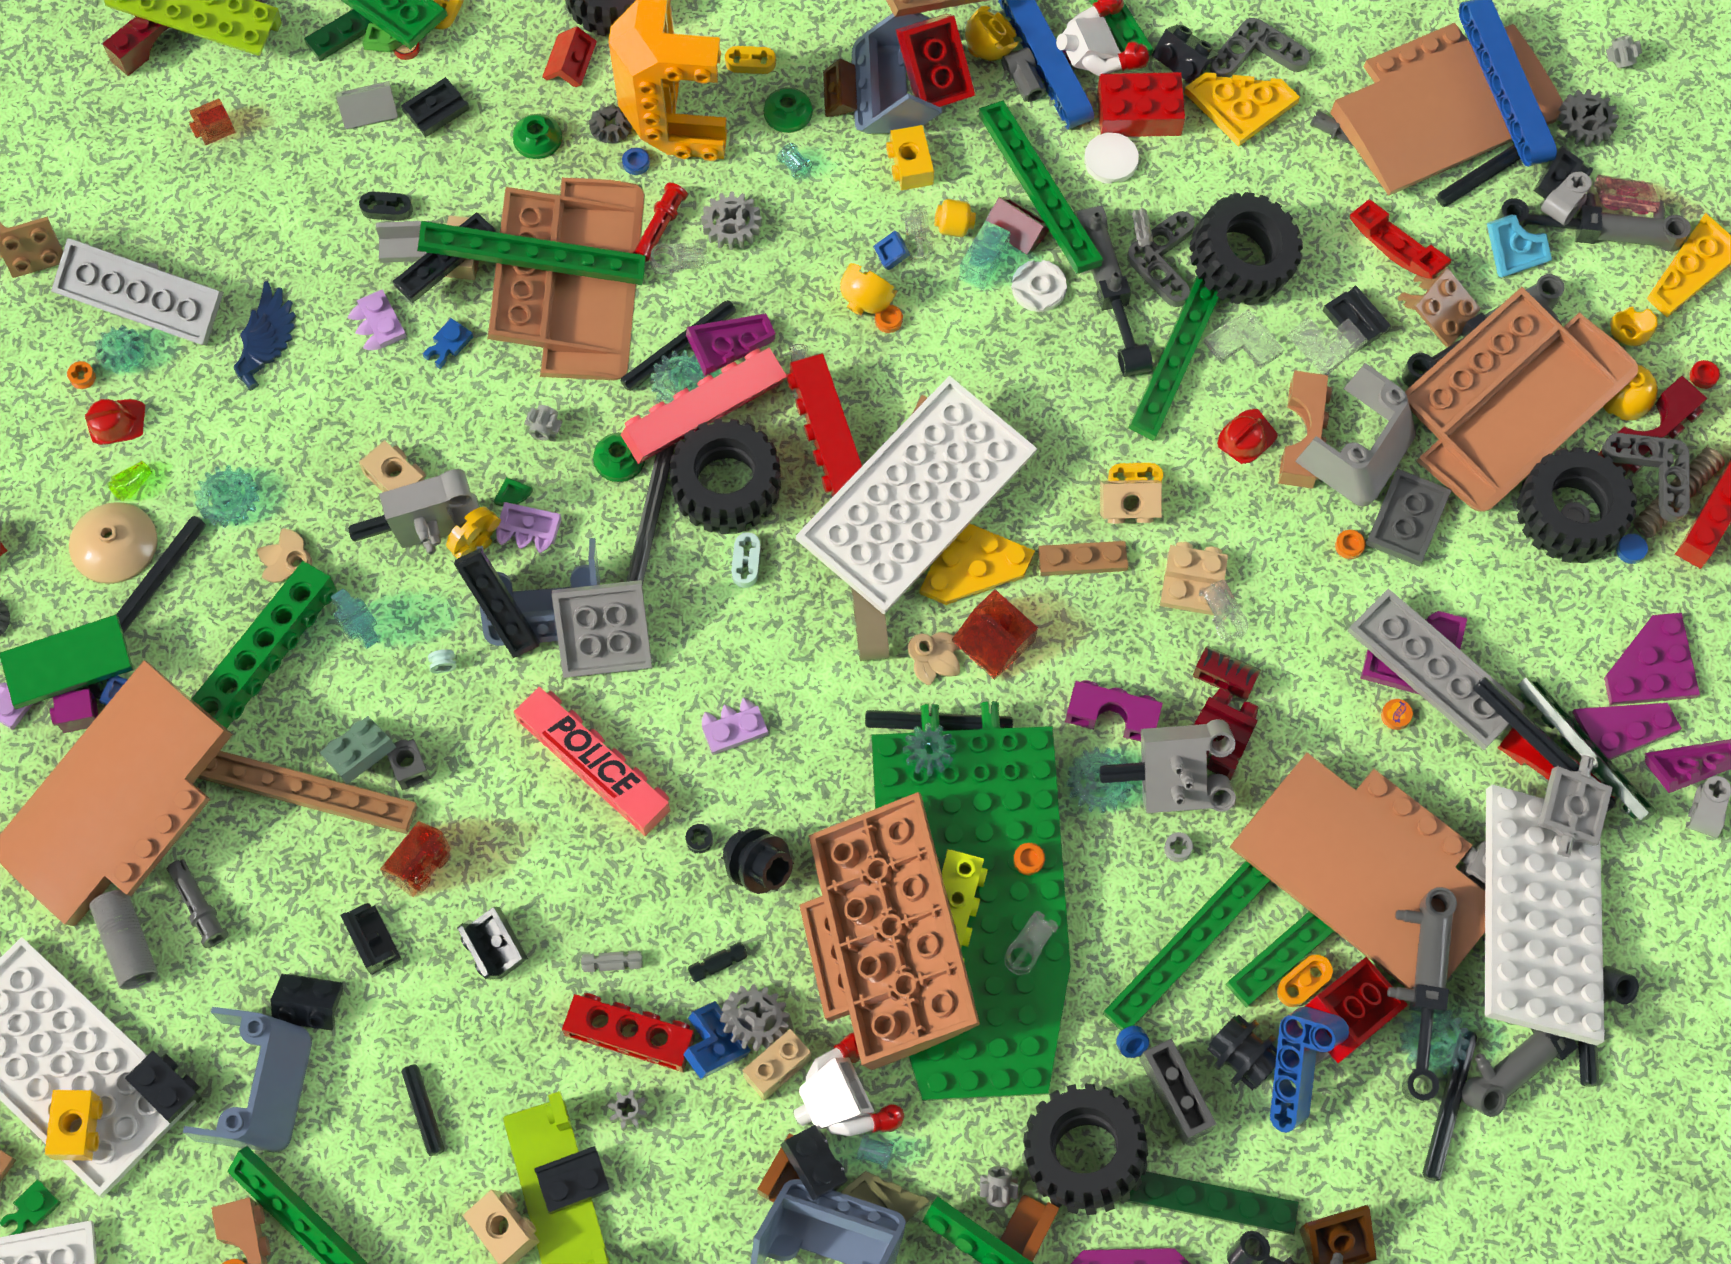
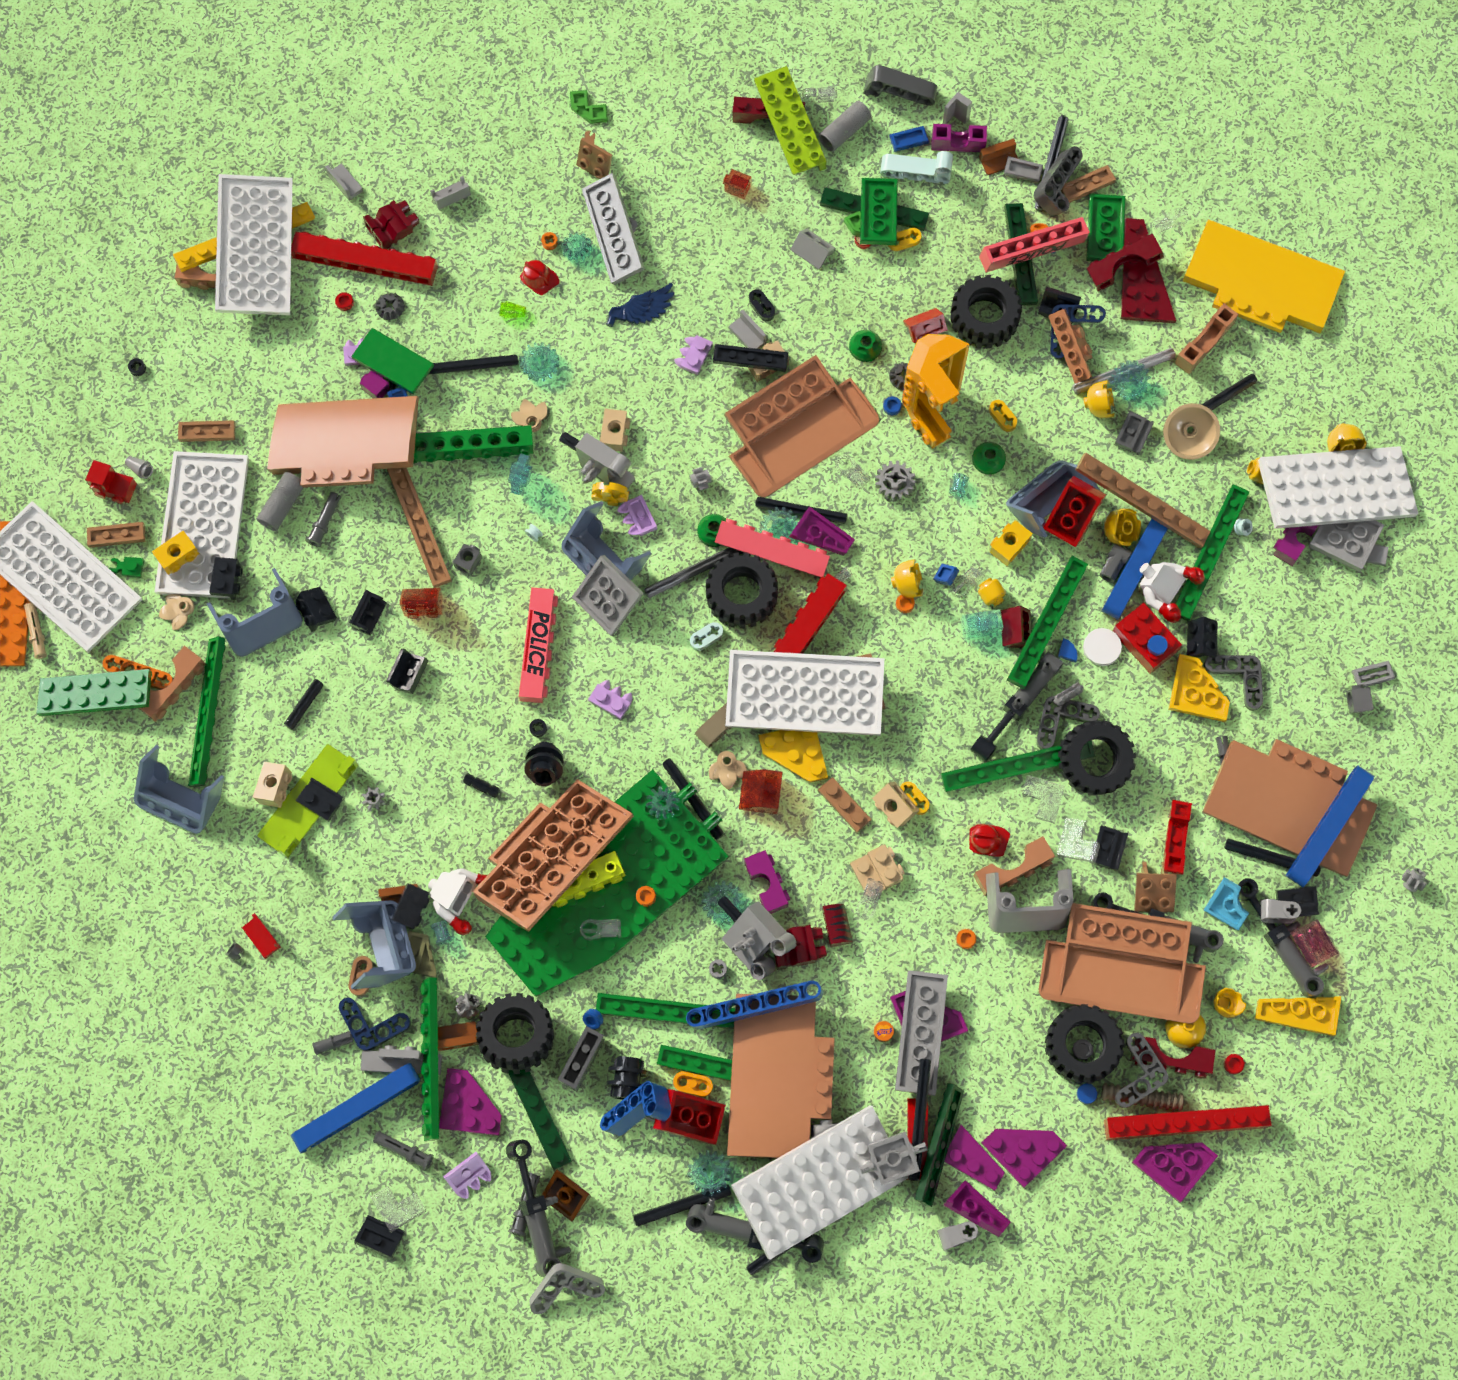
camera: 55 degrees right, 5 degrees up
(121, 554) = (475, 339): tan dish -> none
(149, 1190) = (174, 612): none -> tan plate
(357, 749) = (455, 530): sand green plate -> none
(435, 107) = (838, 282): black plate -> none
(448, 340) = (712, 397): blue plate -> none
(497, 602) = (578, 534): black tile -> none
(512, 492) = (651, 494): green tile -> none
(531, 253) = (787, 398): green plate -> none
(587, 1007) = (399, 743): red brick -> none
(611, 961) = (443, 734): light grey axle -> none
(665, 211) = (873, 443): red pin -> none
(716, 1049) = (441, 817): blue plate -> none
(754, 1017) = (459, 817): light grey gear -> none
(777, 1064) = (448, 852): tan brick -> none
(840, 88) = (1024, 474): reddish brown slope -> none
(1038, 294) = (990, 666): white tile -> none
(1087, 194) = (1067, 651): none -> blue tile
(1165, 93) = (1157, 645): none -> blue tile
(1271, 814) = (745, 1002): none -> blue beam
(1408, 517) = (1006, 958): dark grey plate -> none
(1429, 989) = (730, 1149): dark grey piece -> none
(1587, 117) = (1352, 880): dark grey gear -> none

